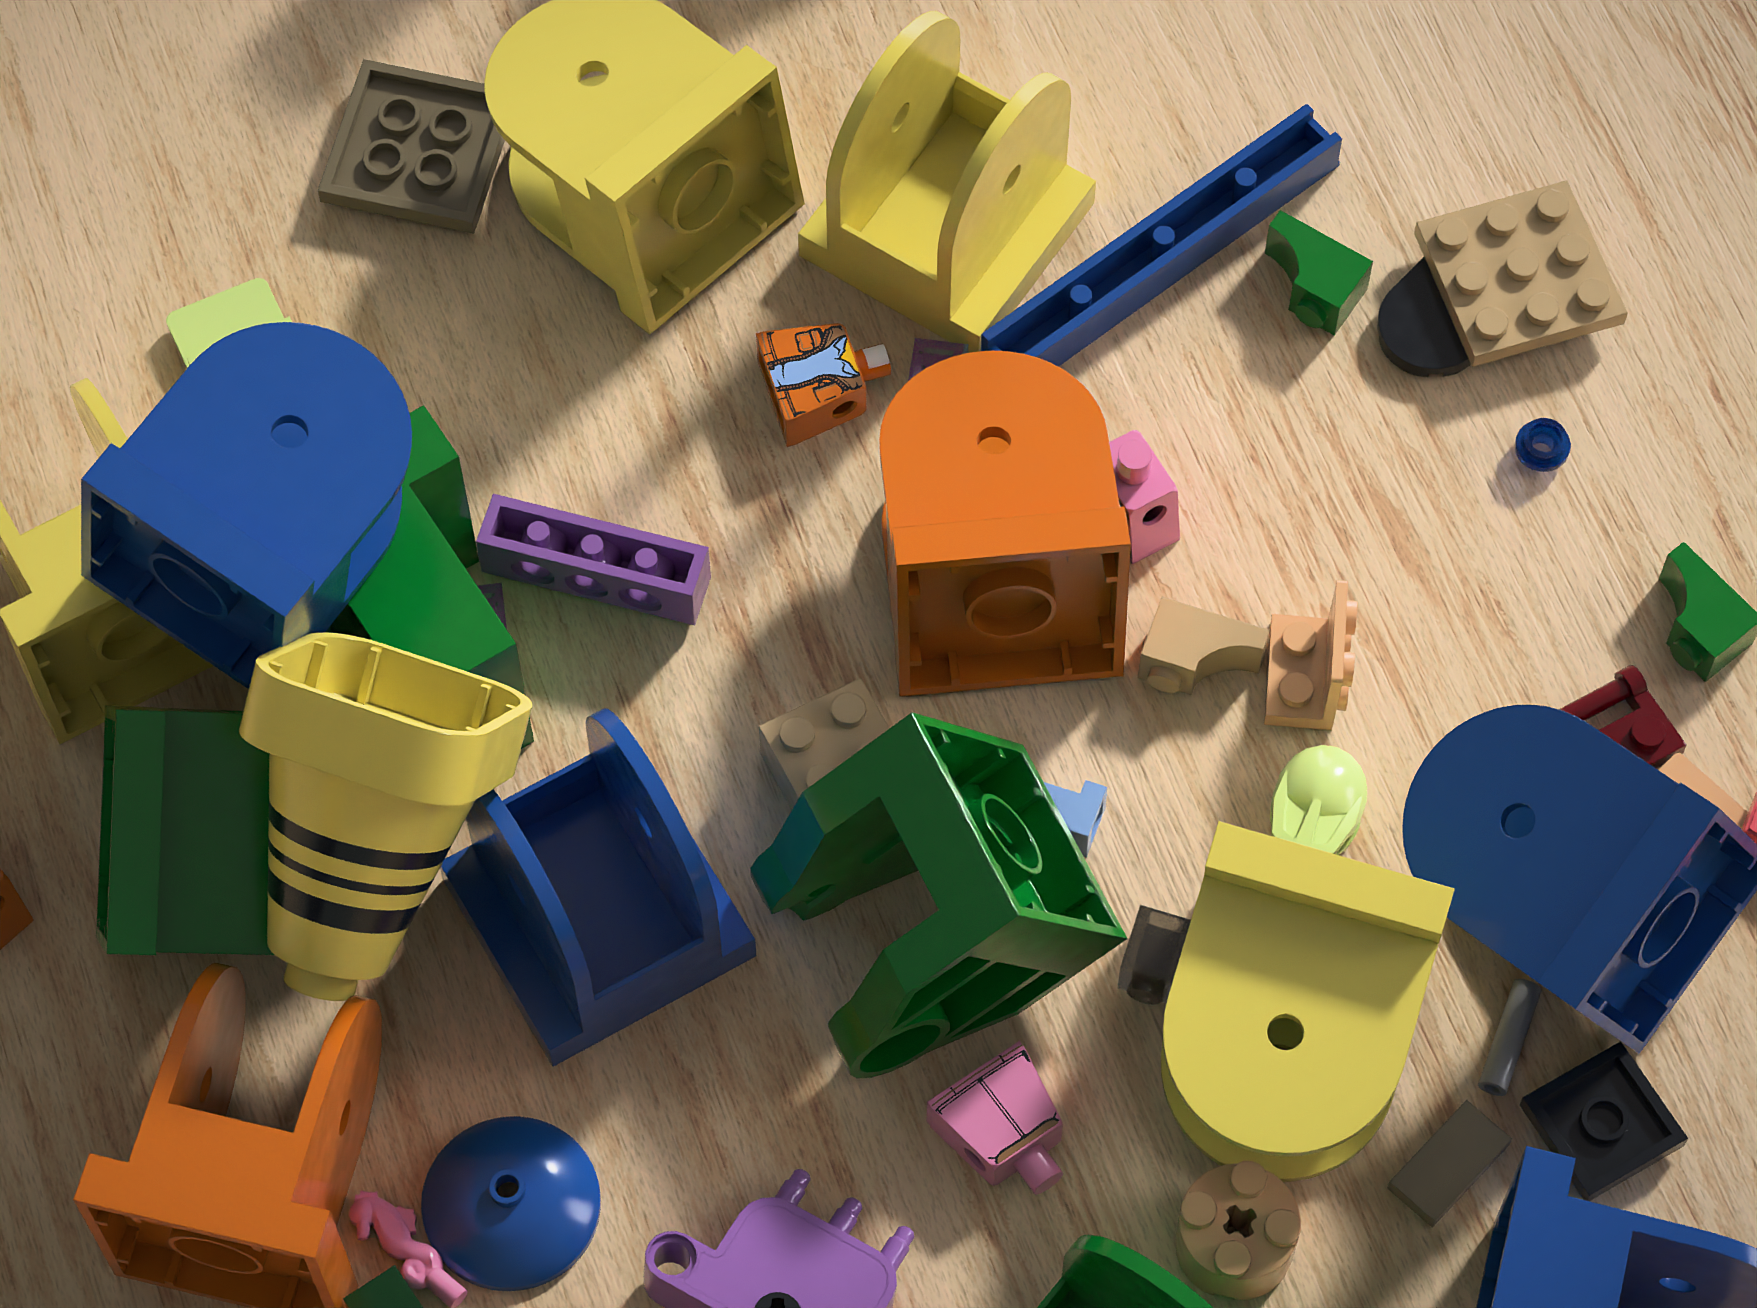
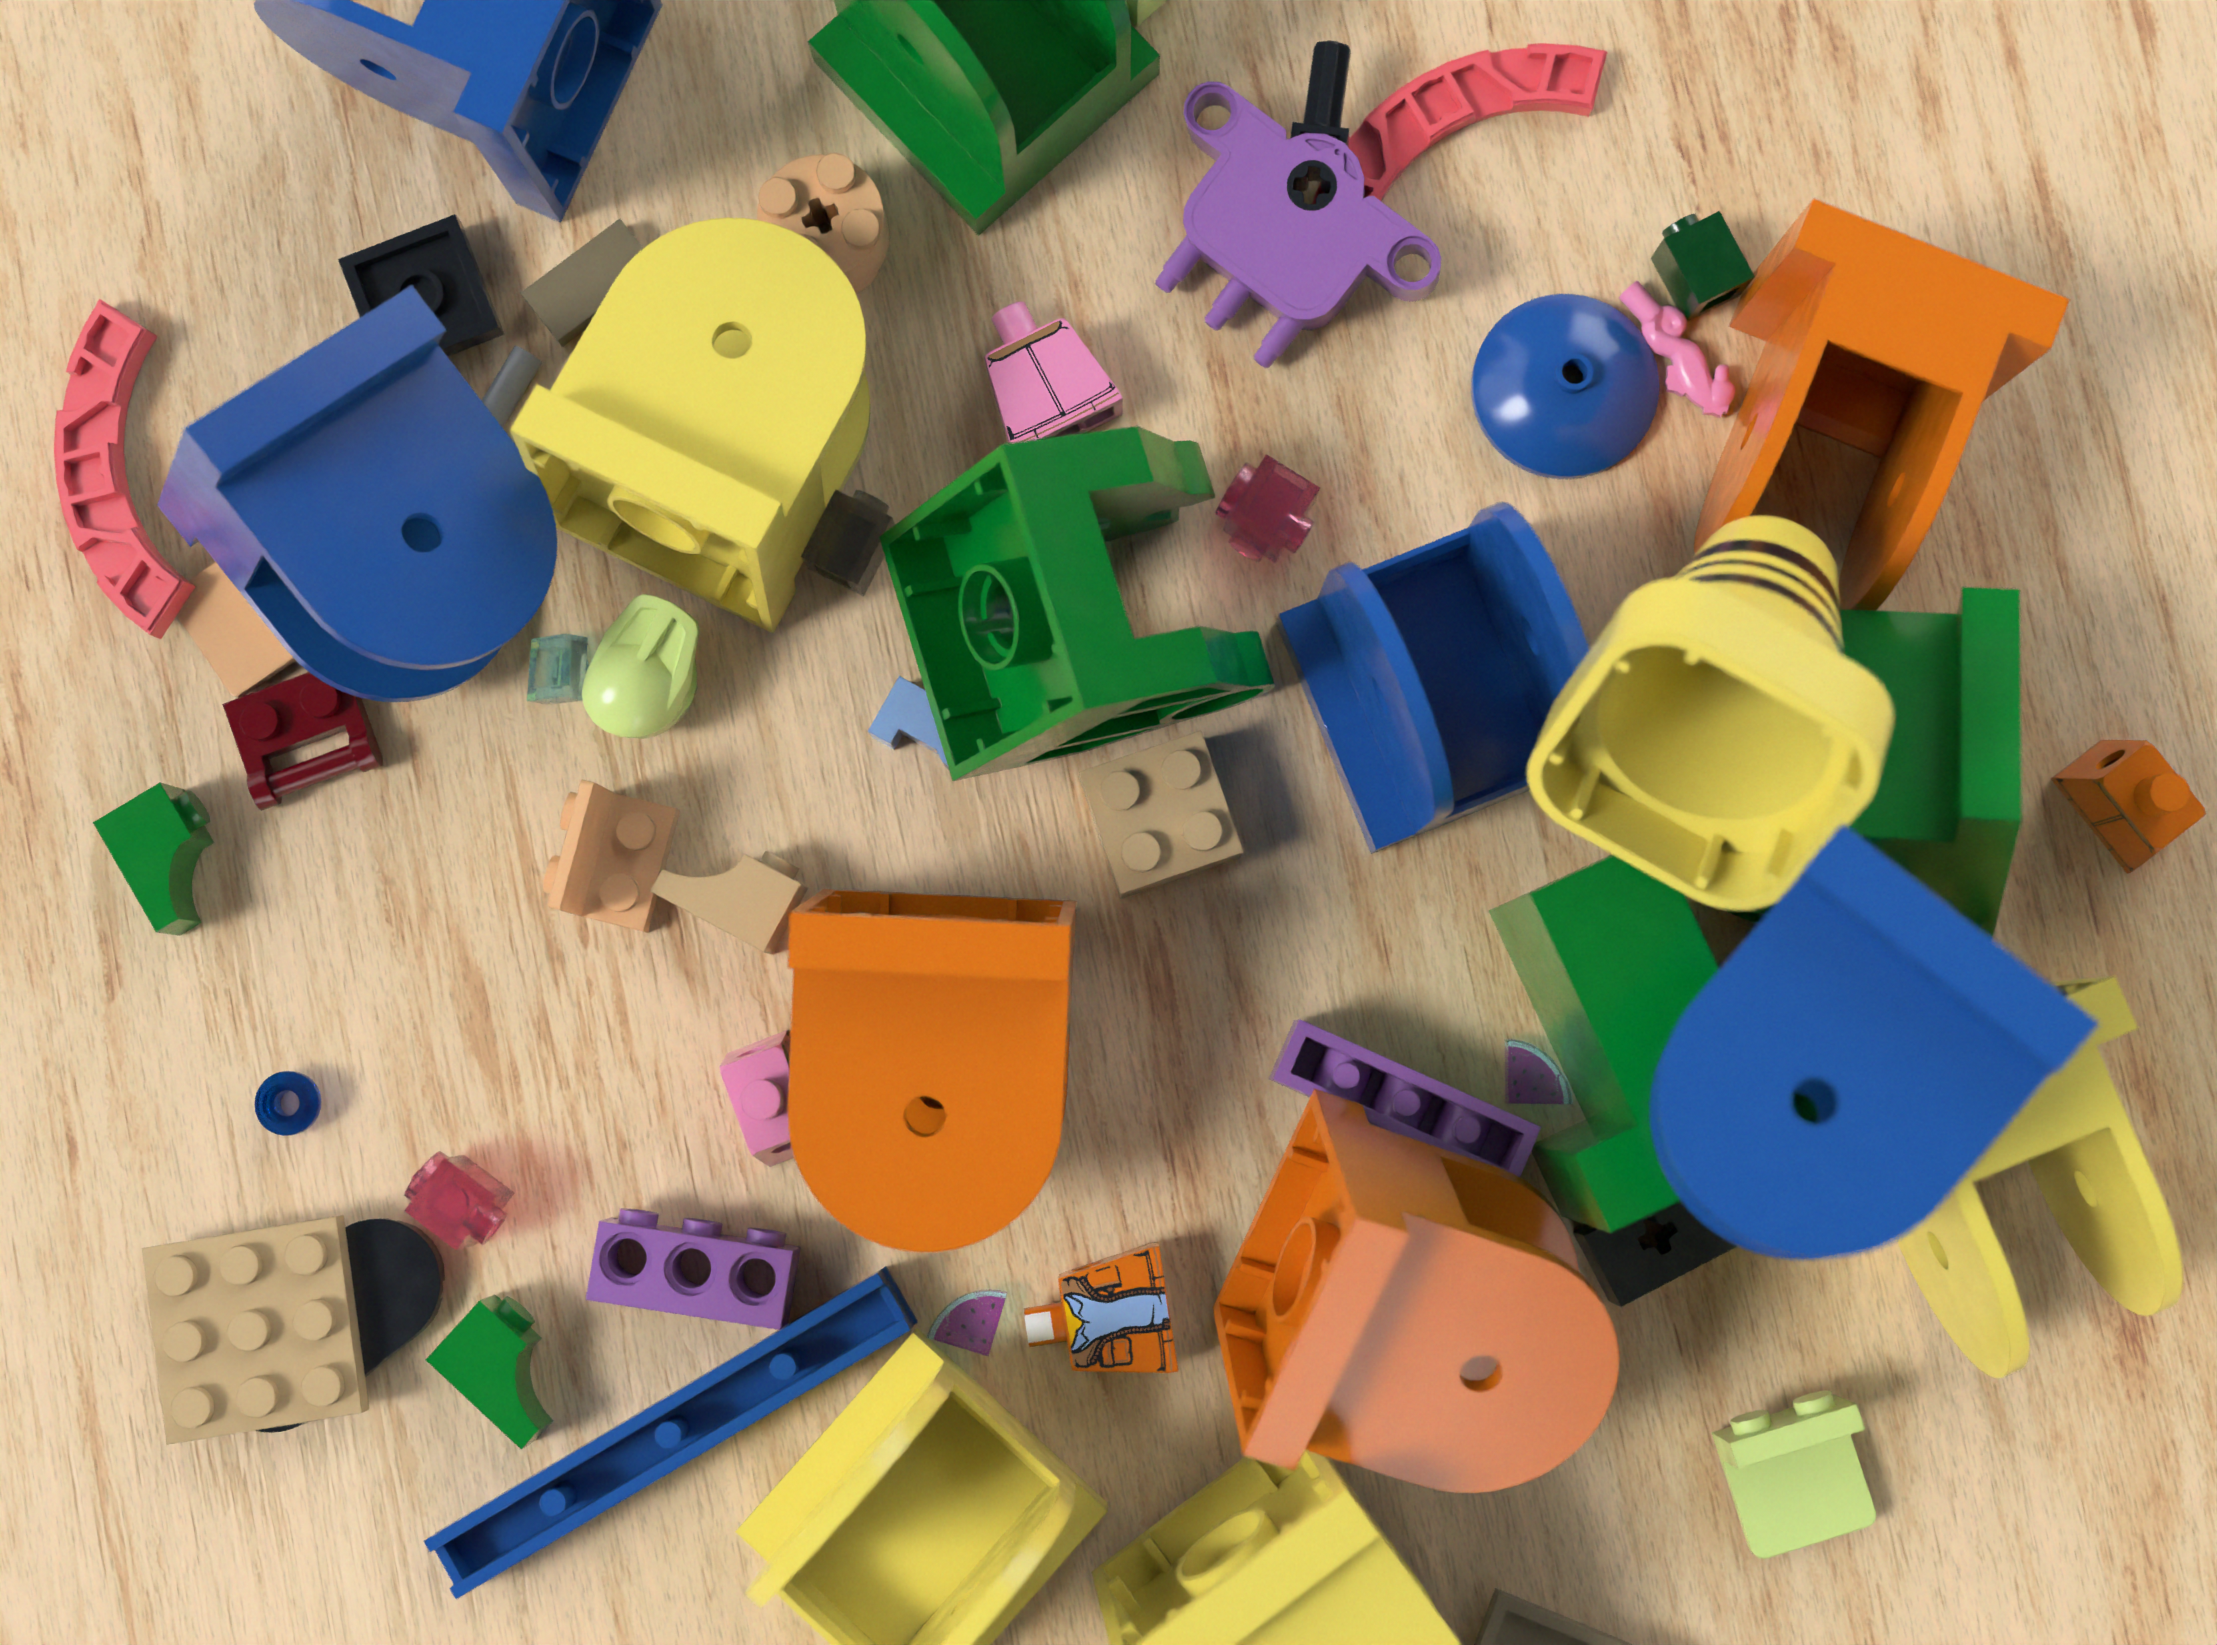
camera: 170 degrees left, 20 degrees up
(611, 357) = (1410, 1314): none -> orange piece
(777, 1037) = (1267, 510): none -> clear pink brick
(1186, 343) = (666, 1289): none -> medium lavender brick
(1377, 385) = (457, 1200): none -> clear pink brick
(1386, 807) = (557, 669): none -> clear light blue plate

